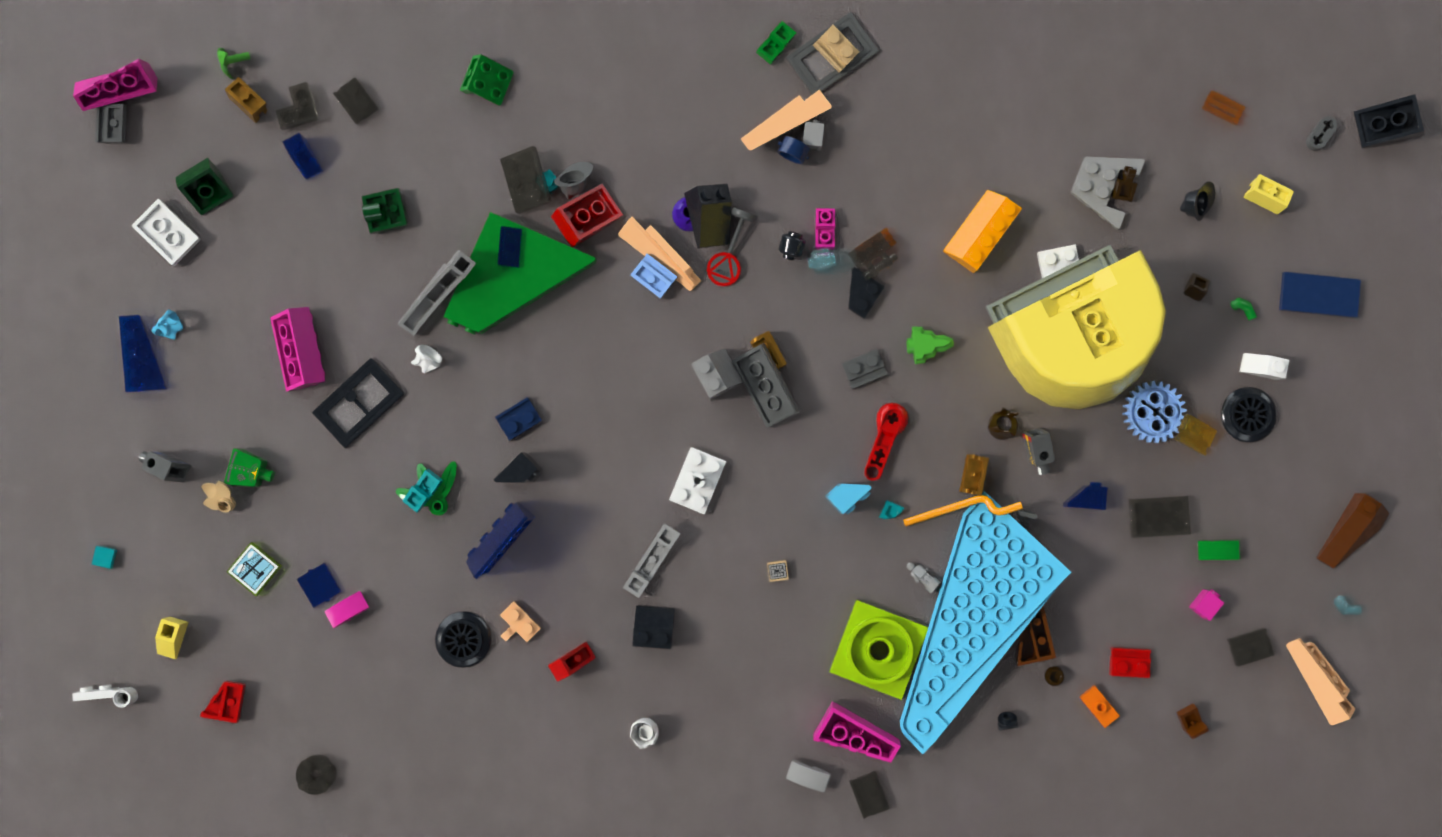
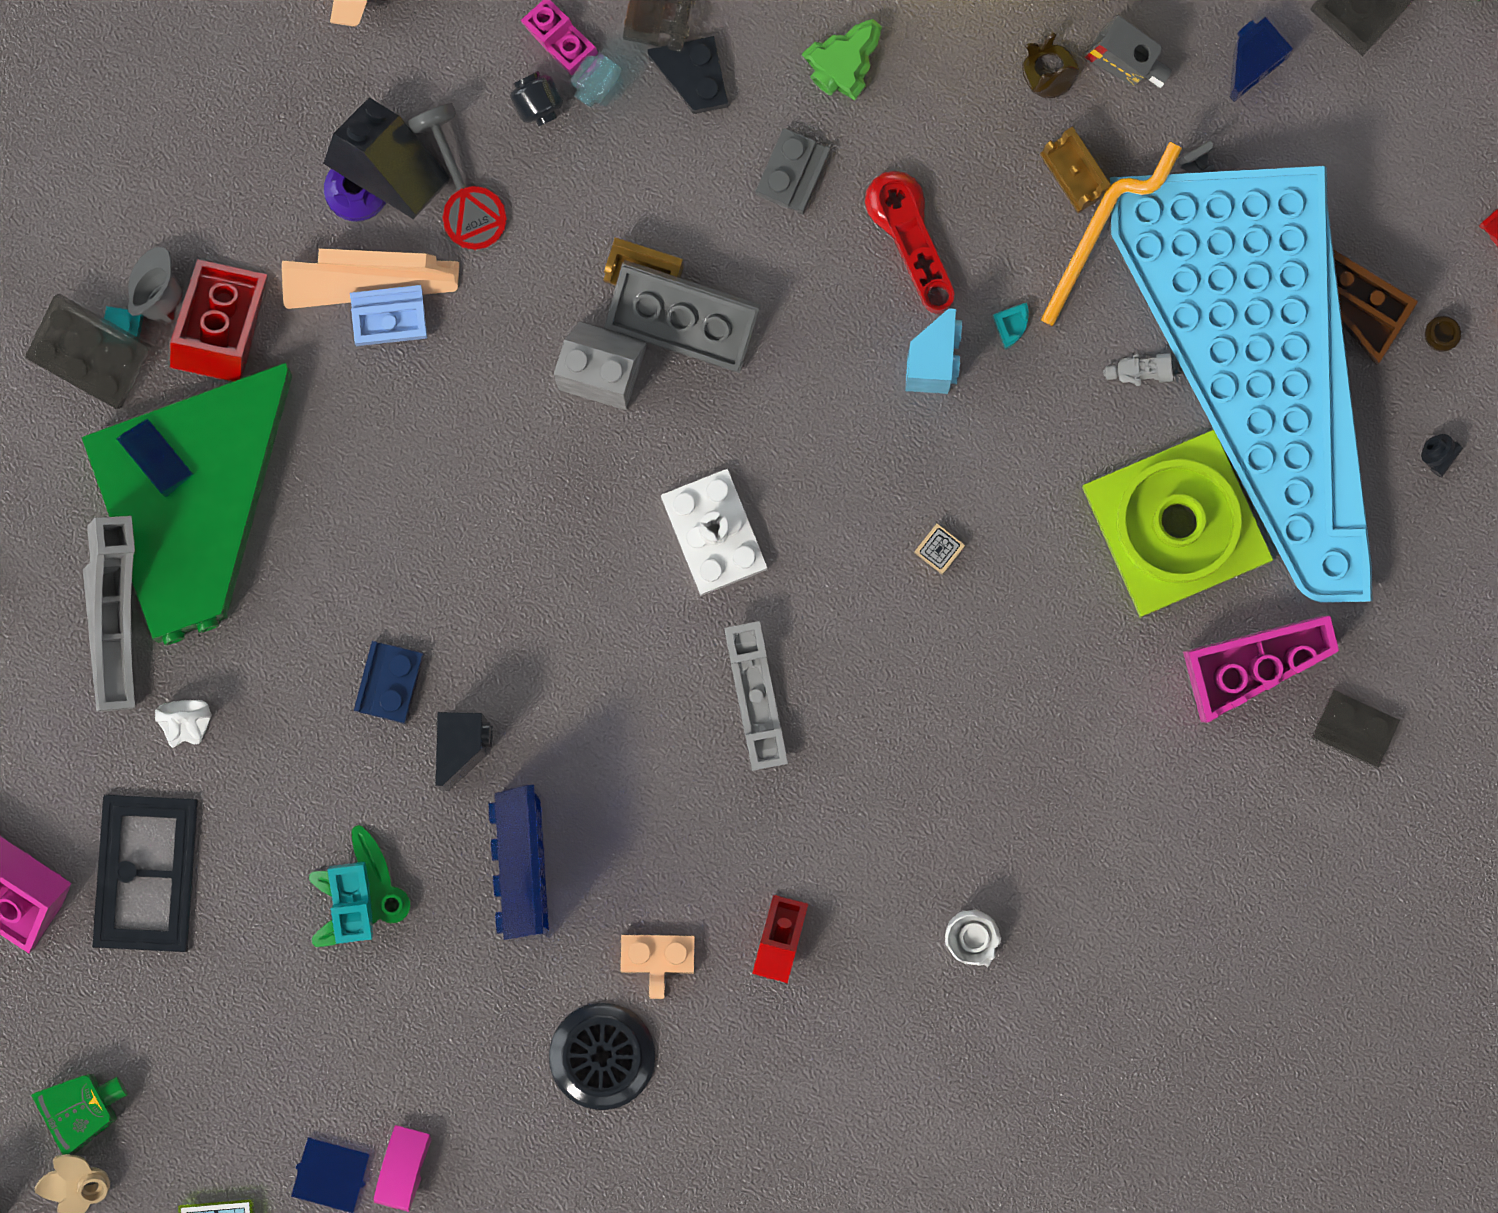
camera: 45 degrees left, 5 degrees down
(653, 627) = (846, 784): black slope -> none
(808, 776) = (1249, 782): light grey slope -> none

